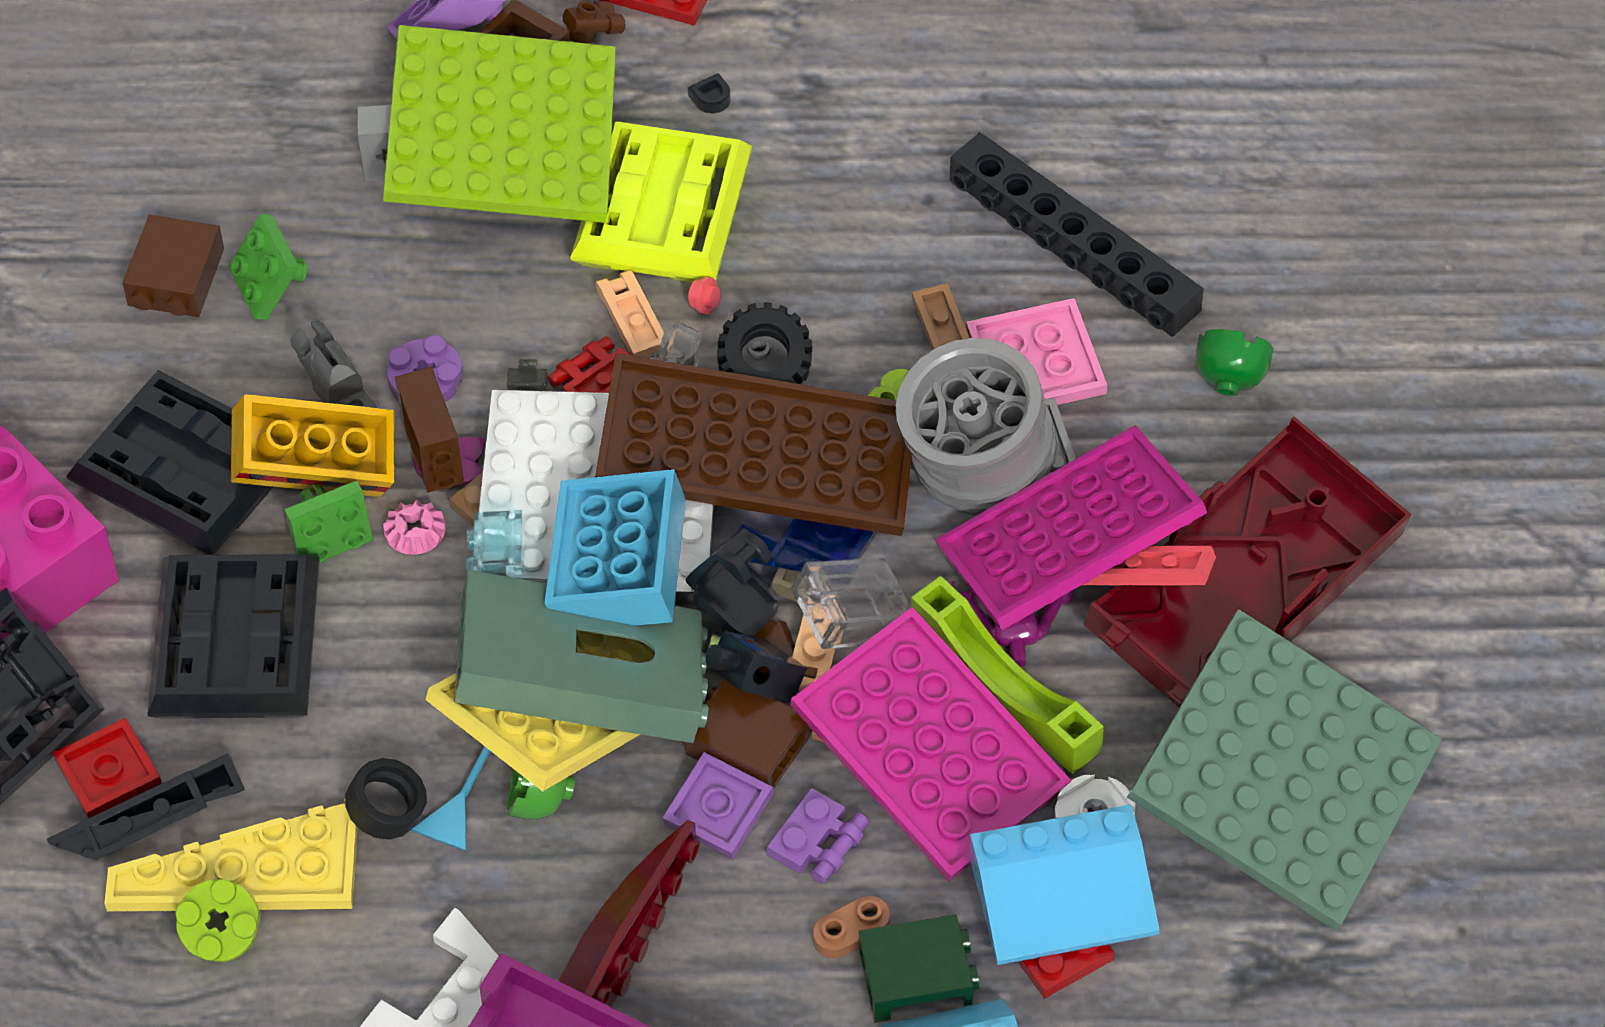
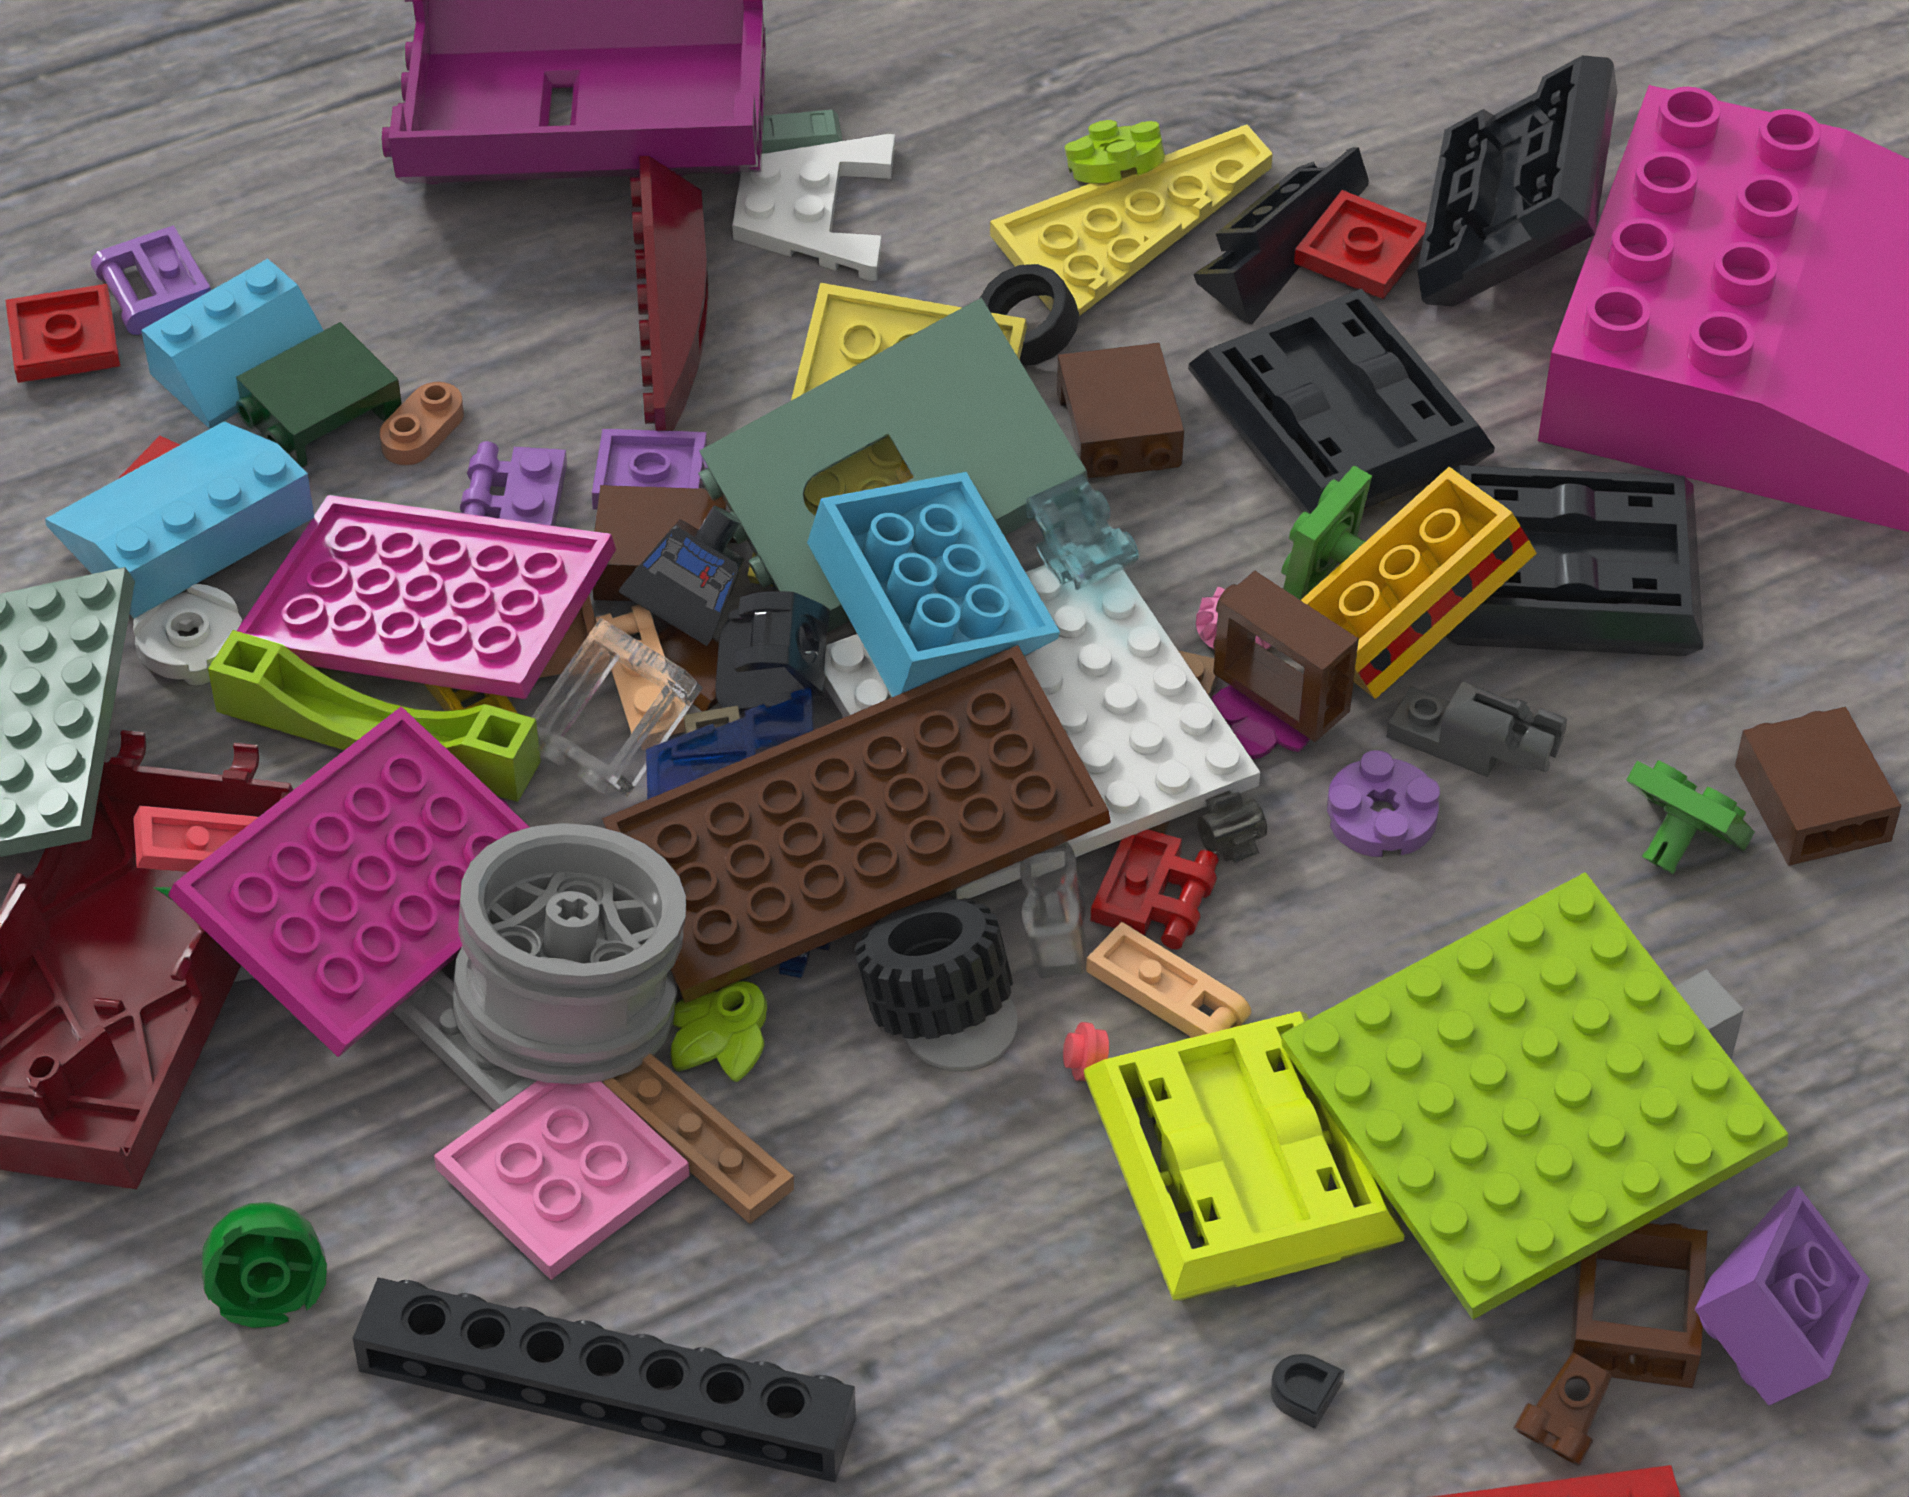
camera: 150 degrees right, 5 degrees down
(375, 701) = (1121, 409): none -> reddish brown panel

